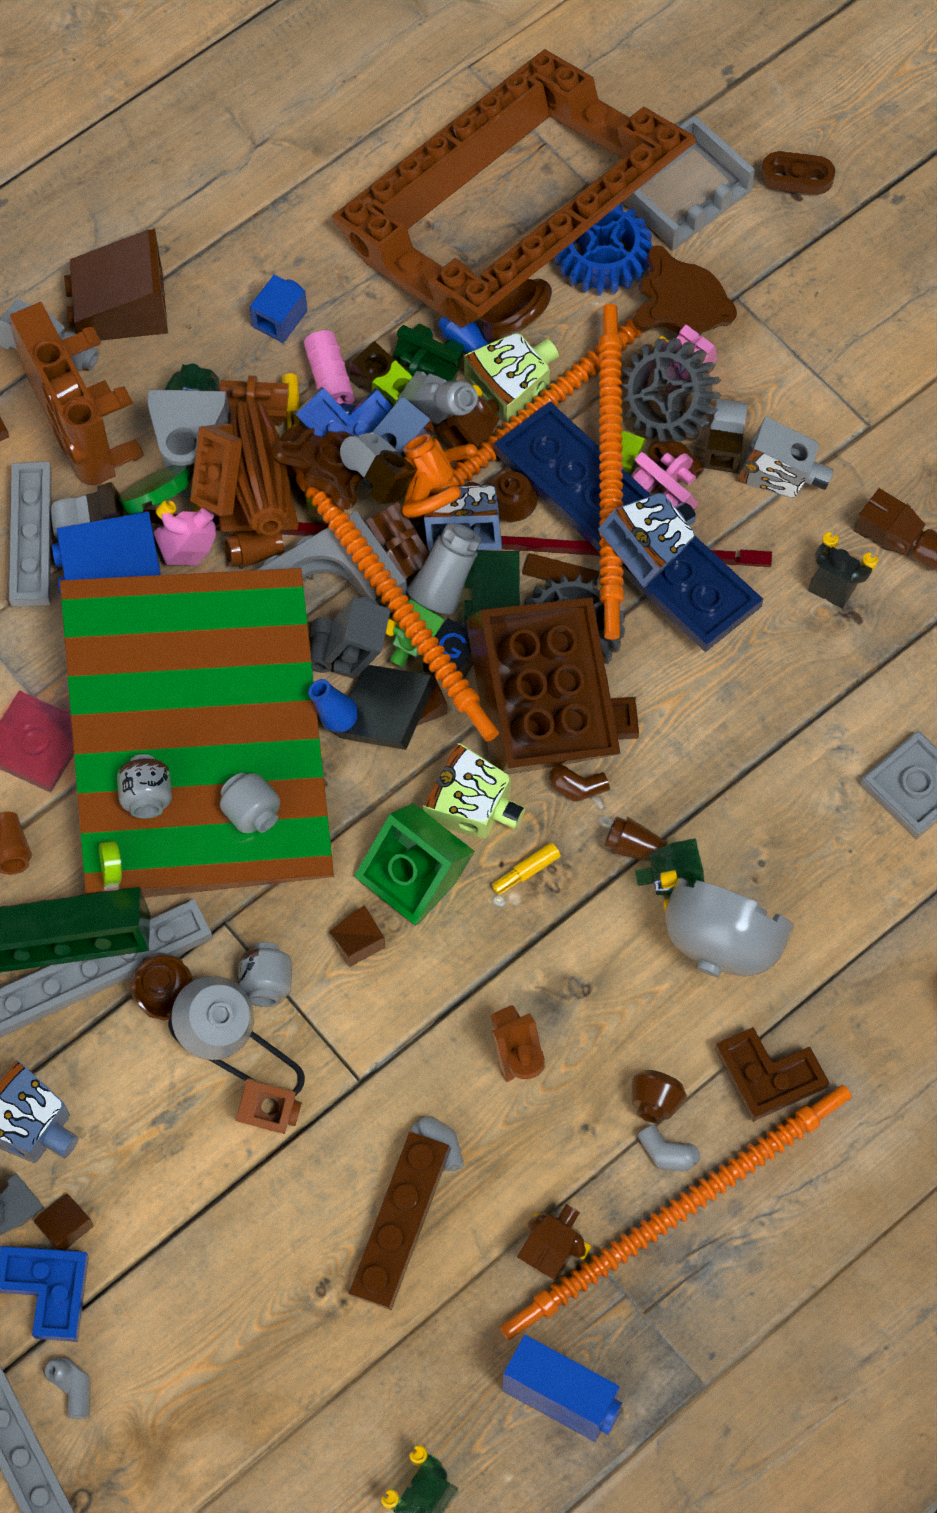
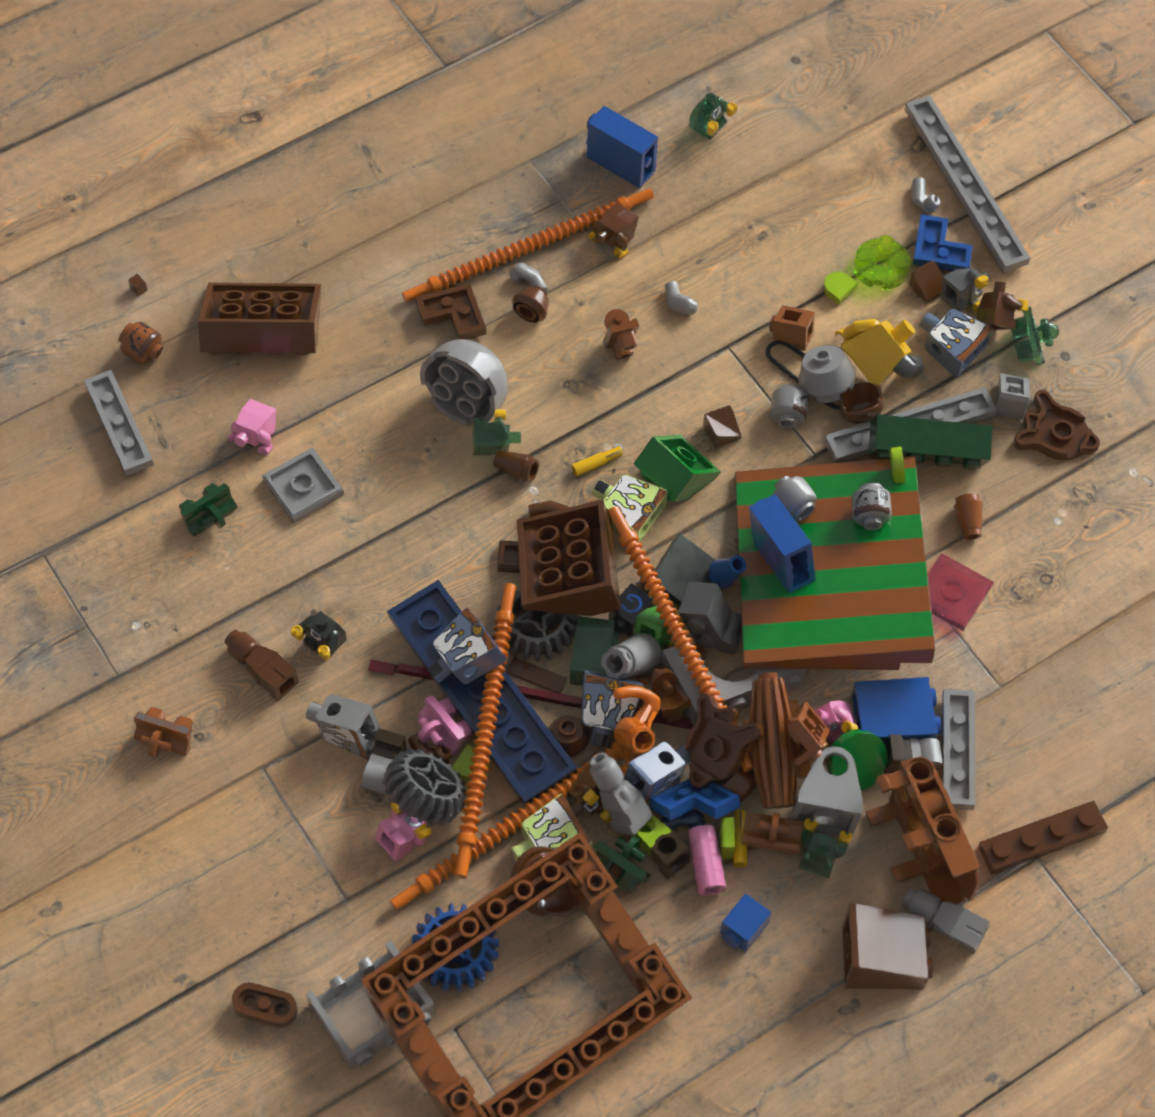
camera: 175 degrees left, 5 degrees down
(111, 1245) = (884, 249): none -> clear neon green plate
(138, 1061) = (880, 349): none -> yellow torso
(200, 1200) = (839, 286): none -> lime tile
(263, 709) = (782, 543): none -> blue brick
(305, 384) = (727, 837): none -> lime tile
(379, 465) = (676, 733): leg -> none
(400, 1220) = (709, 256): reddish brown plate -> none
(681, 296) = (396, 884): reddish brown tile -> none

